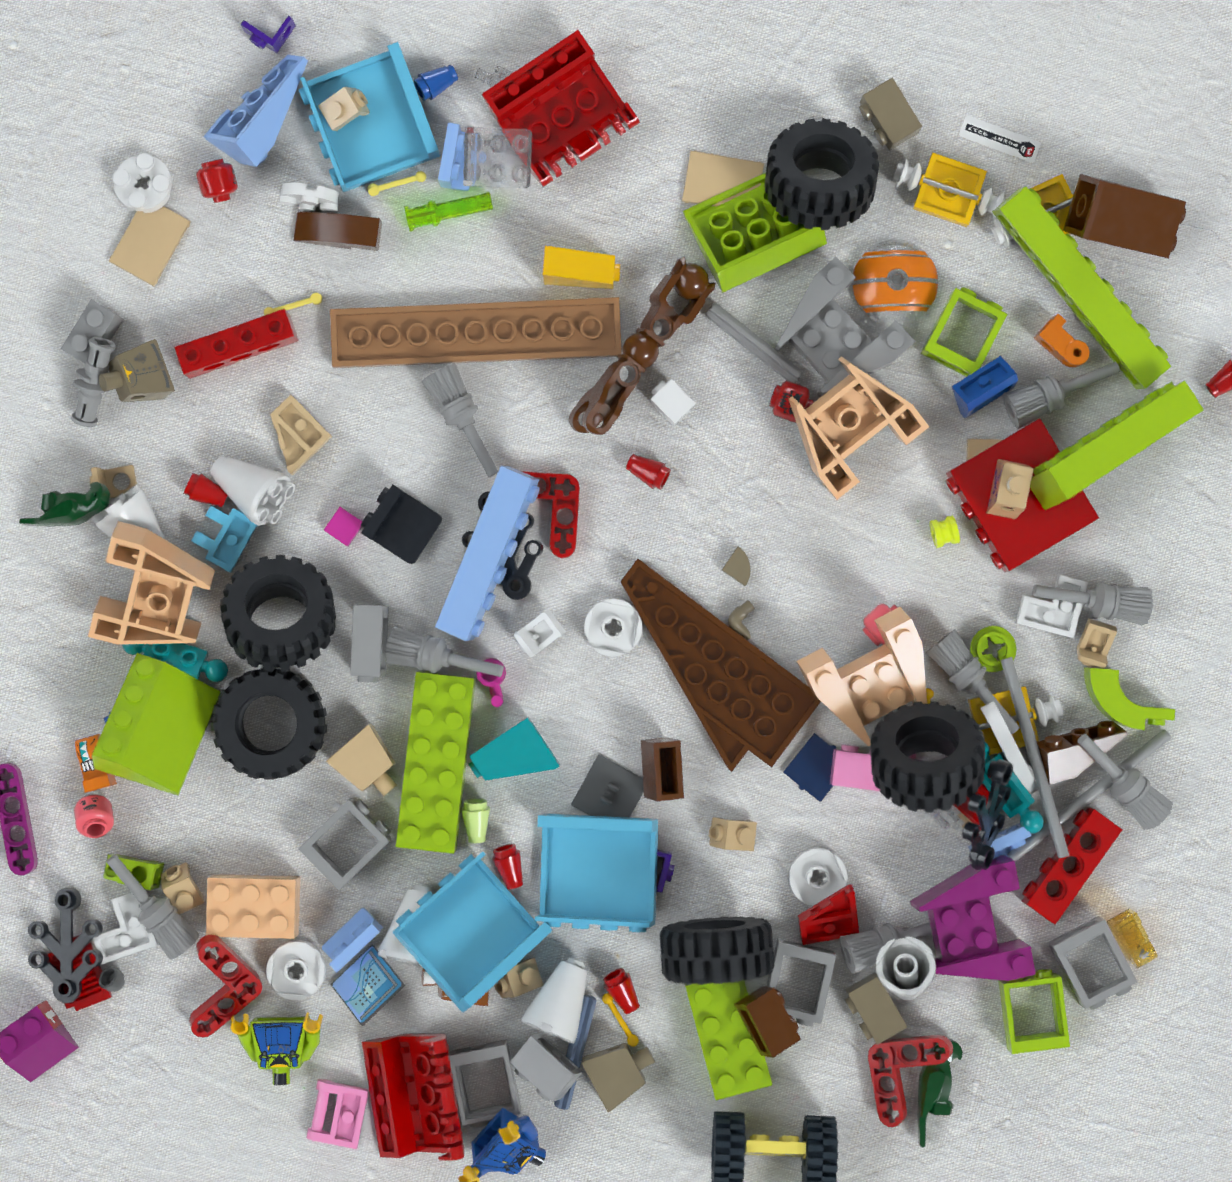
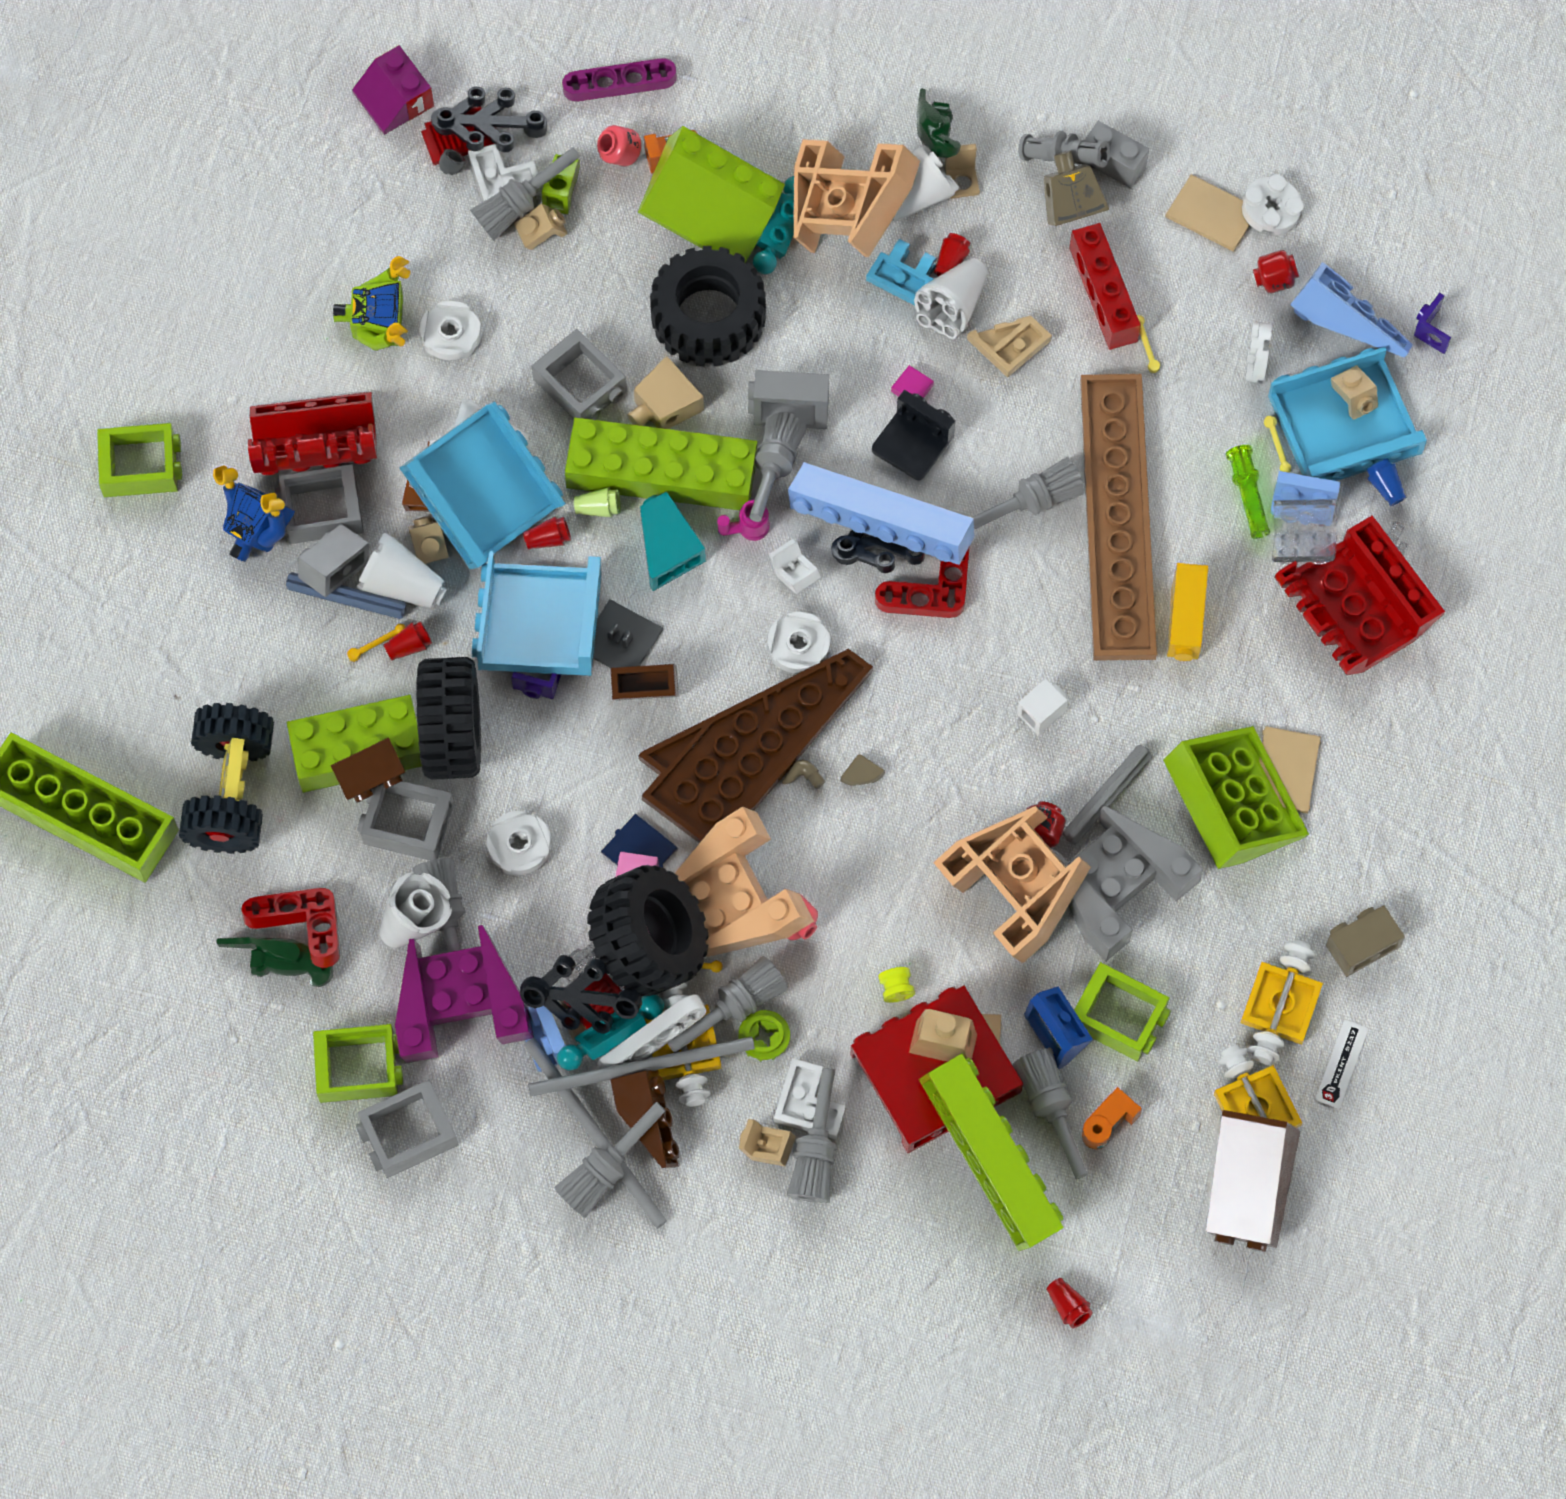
camera: 95 degrees right, 20 degrees down
(233, 982) = (443, 269): red beam -> none
(253, 906) = (519, 290): light nougat brick -> none
(271, 580) = (844, 286): black tyre -> none
(338, 230) = (1225, 386): reddish brown slope -> none
(347, 1115) = (296, 374): bright pink plate -> none
(351, 938) = (477, 379): light blue bracket -> none
(367, 985) = (429, 394): piece -> none
(617, 1072) = (320, 633): dark tan torso -> none
(640, 350) = (1100, 673): reddish brown piece -> none
(648, 471) = (967, 682): red cone -> none
(732, 834) = (570, 757): tan bracket -> none
(822, 147) = (1263, 860): black tyre -> none
(830, 918) = (474, 851): red wing -> none
(875, 1008) = (366, 897): dark tan brick -> none
(880, 296) = (1172, 964): orange dish -> none
(1070, 882) = (551, 1145): red brick -> none
(1082, 288) = (1169, 1133): lime brick -> none
(1109, 699) = (702, 1157): lime arch -> none
(1133, 937) = (431, 1176): clear yellow leg -> none

